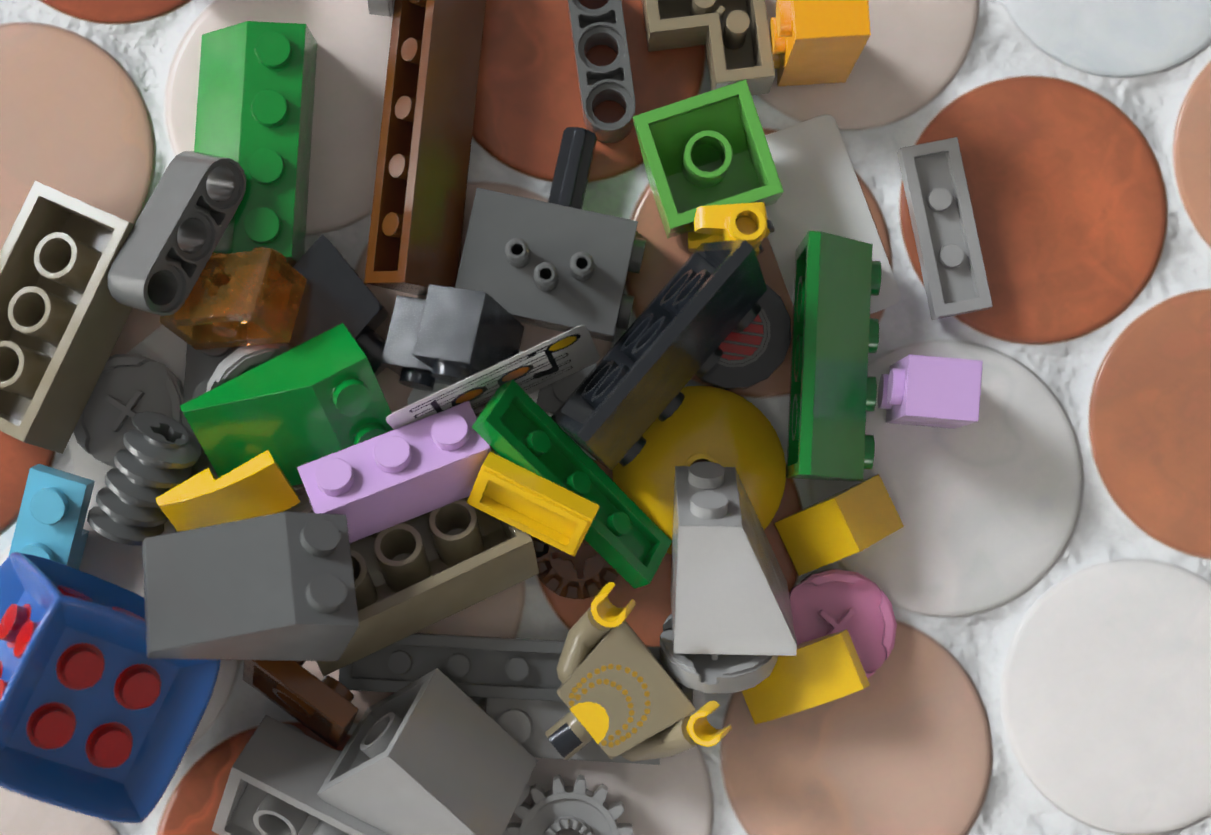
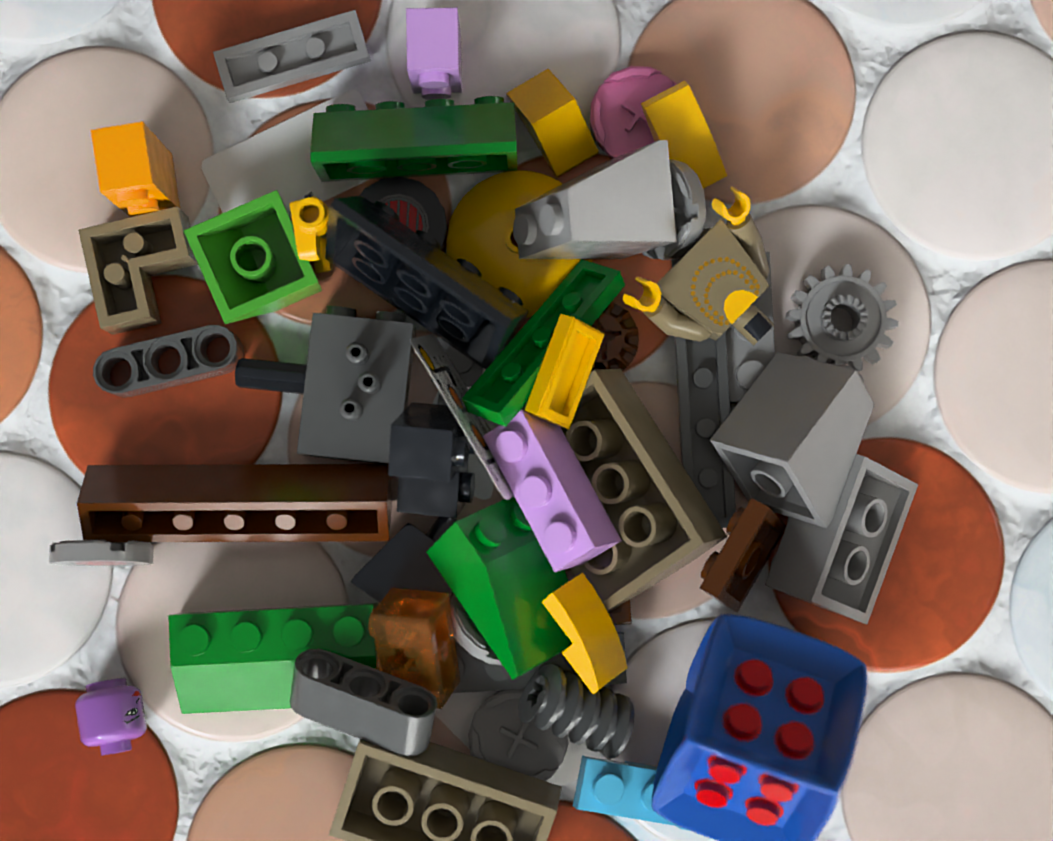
camera: 95 degrees left, 0 degrees up
(251, 590) = (662, 589): dark grey slope -> none

